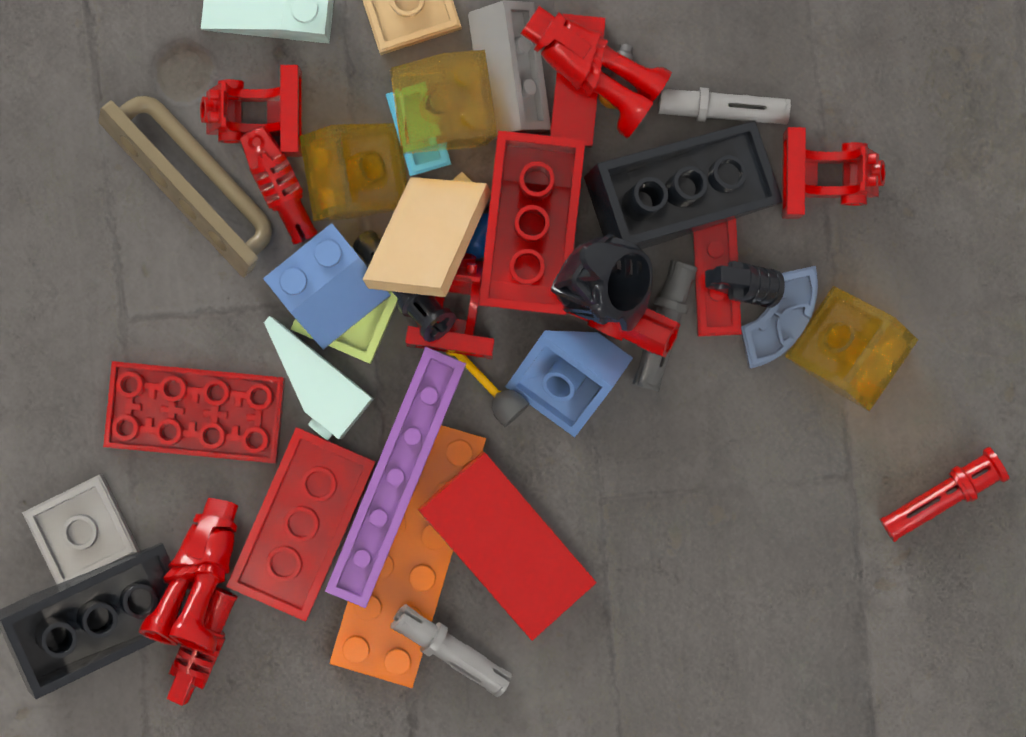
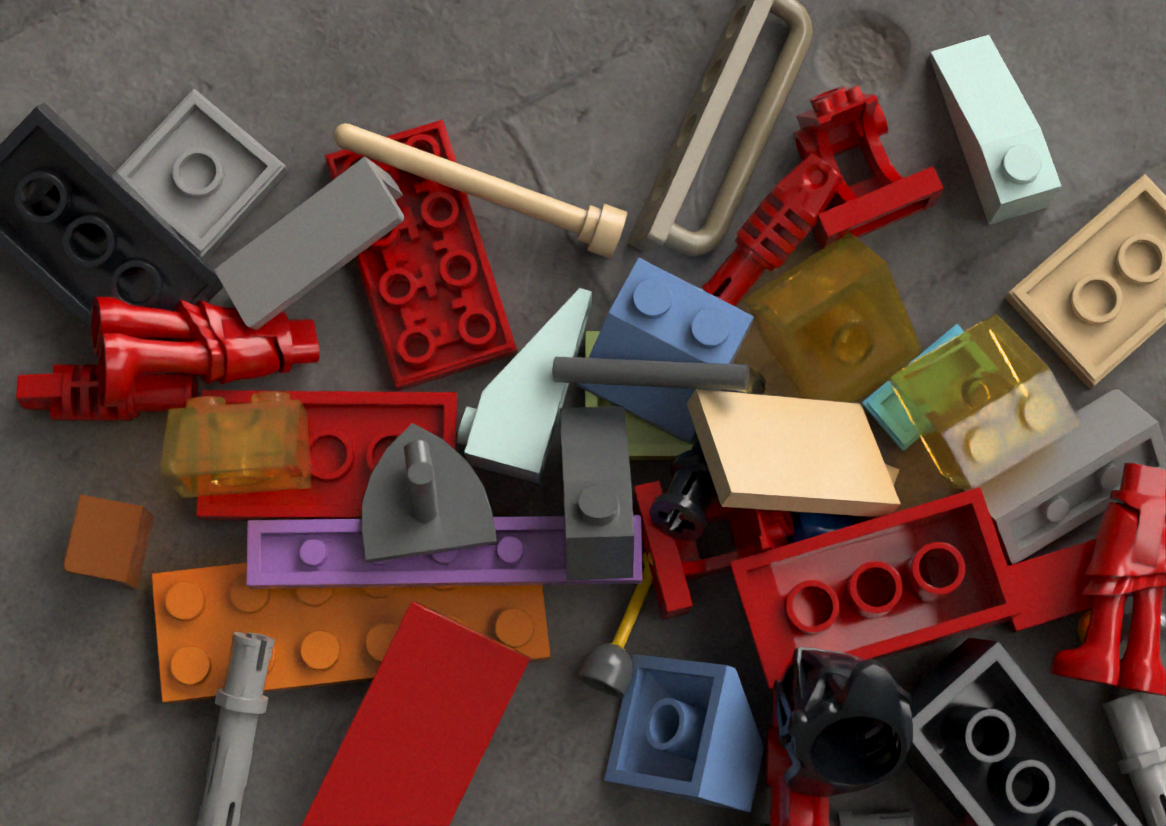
camera: 60 degrees right, 10 degrees down
(163, 479) = (311, 242): none -> light grey panel
(225, 294) = (594, 226): none -> tan piece
(274, 579) = (237, 446): none -> clear yellow slope
(298, 682) = (109, 541): none -> dark orange panel
(340, 302) = (651, 373): none -> dark grey bar
(358, 477) = (423, 501): none -> dark grey shield
(399, 368) = (597, 493): none -> dark grey slope

